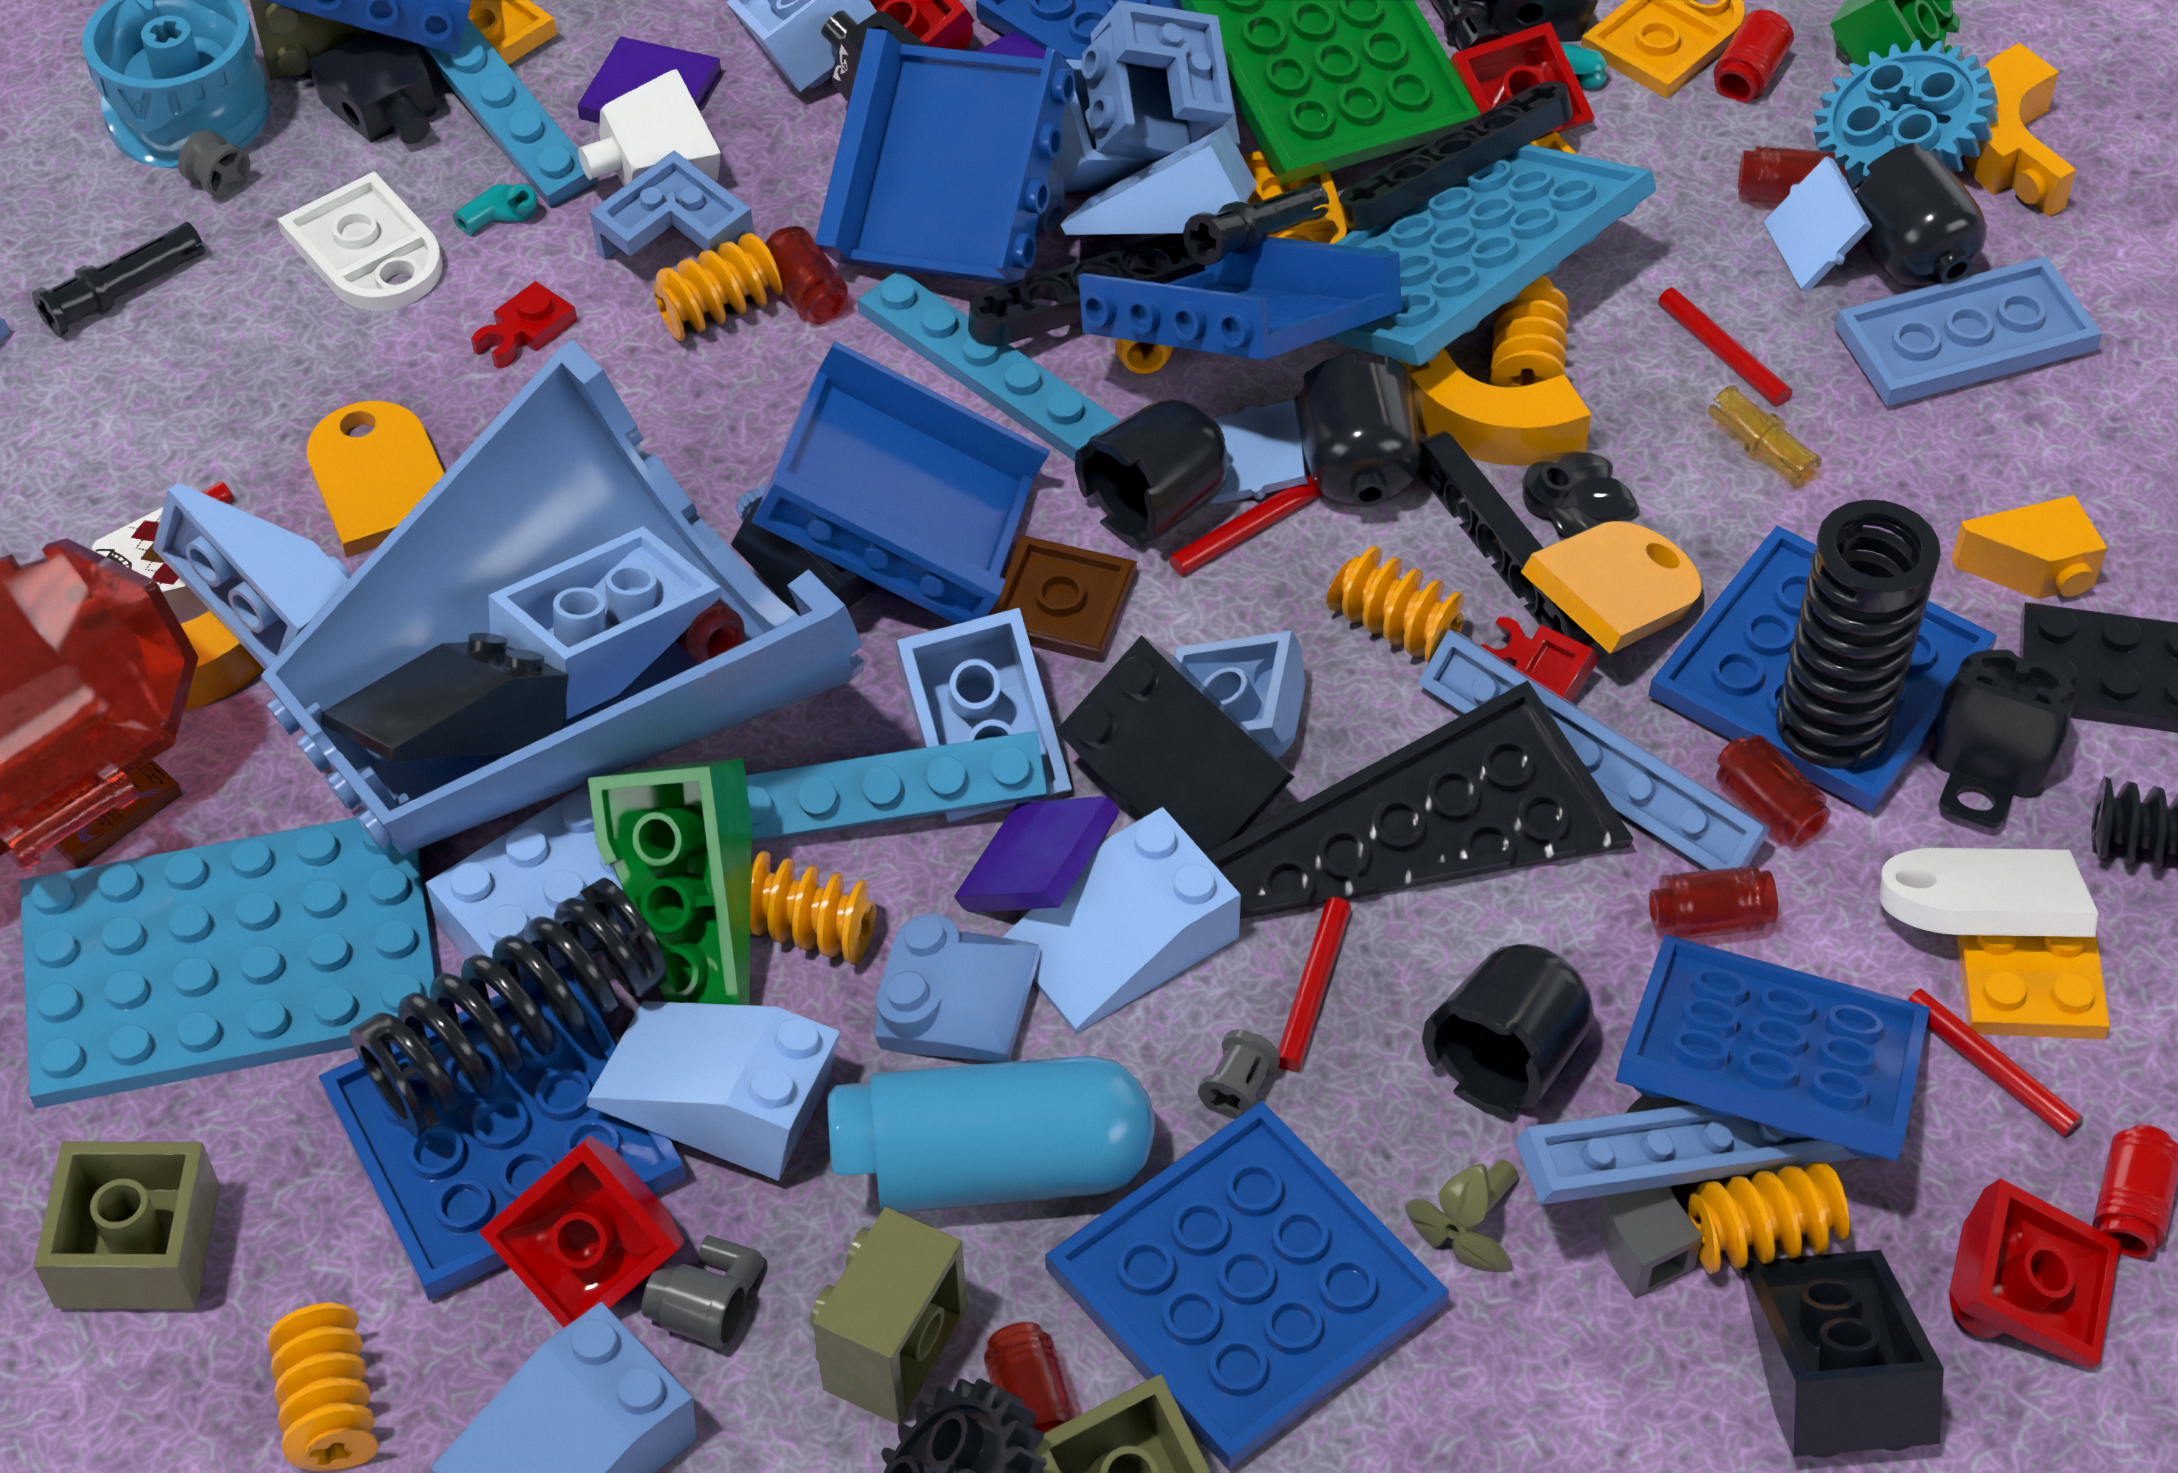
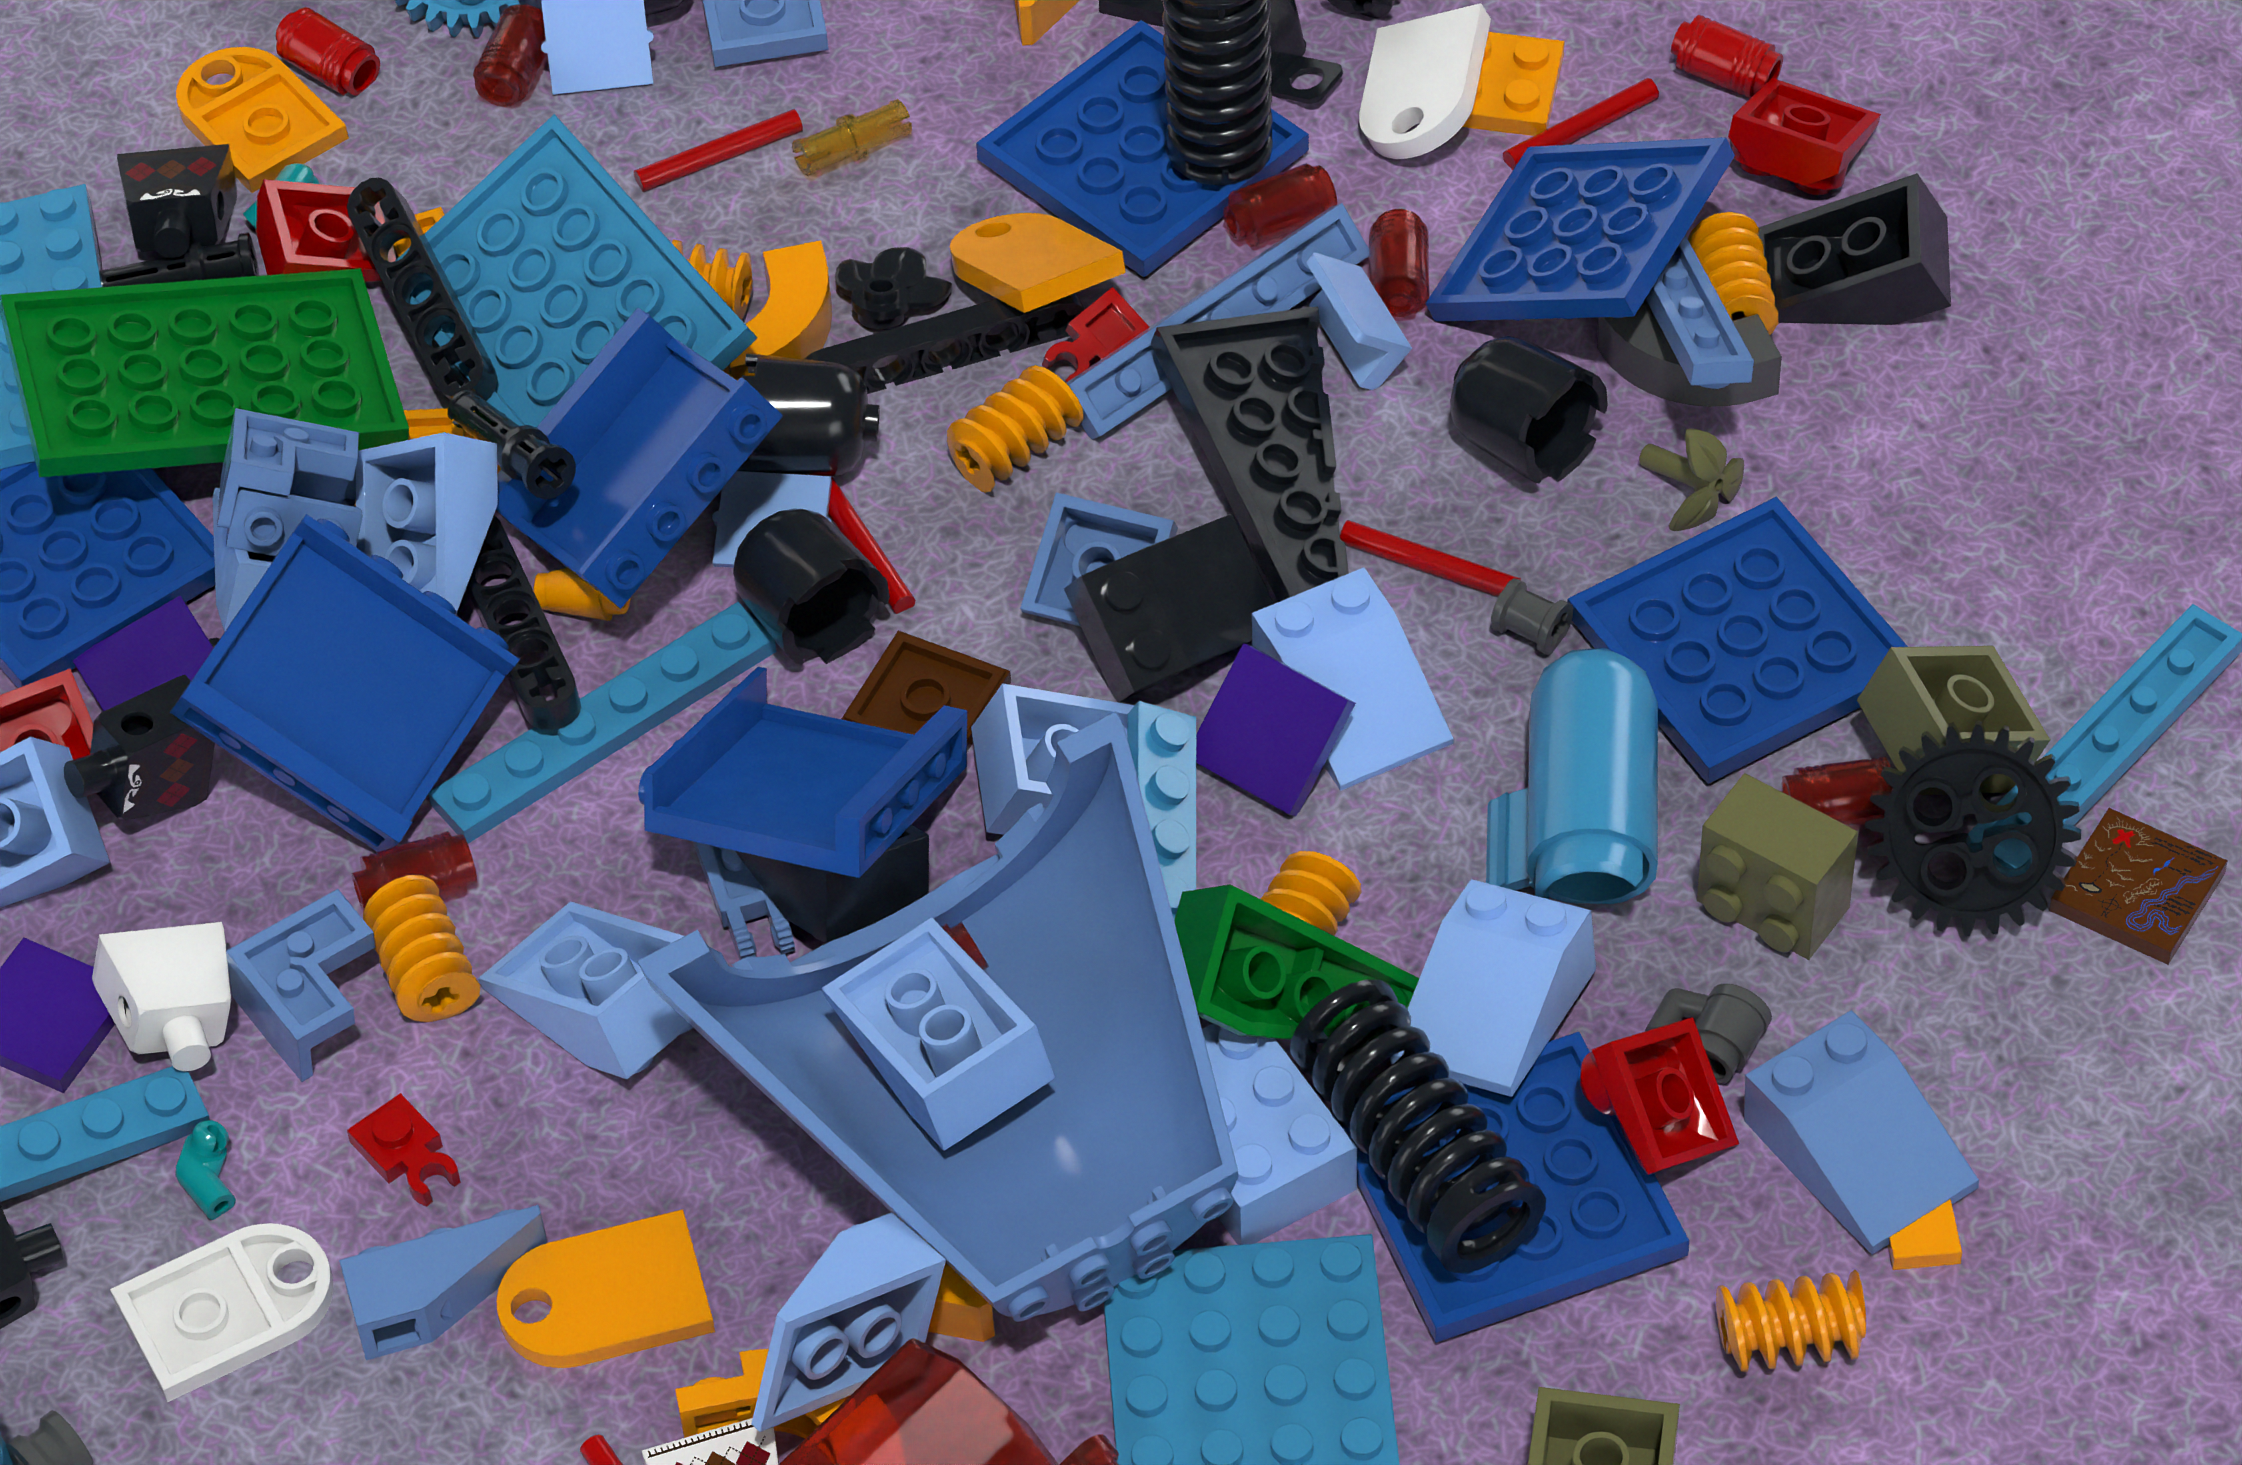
camera: 80 degrees left, 0 degrees up
(371, 355) = (429, 1283): none -> medium blue slope
(456, 703) = (1054, 1141): black slope -> none
(700, 408) = (586, 990): none -> light blue slope
(953, 991) = (1406, 818): medium blue slope -> none
(1611, 857) = (1357, 321): none -> light blue panel

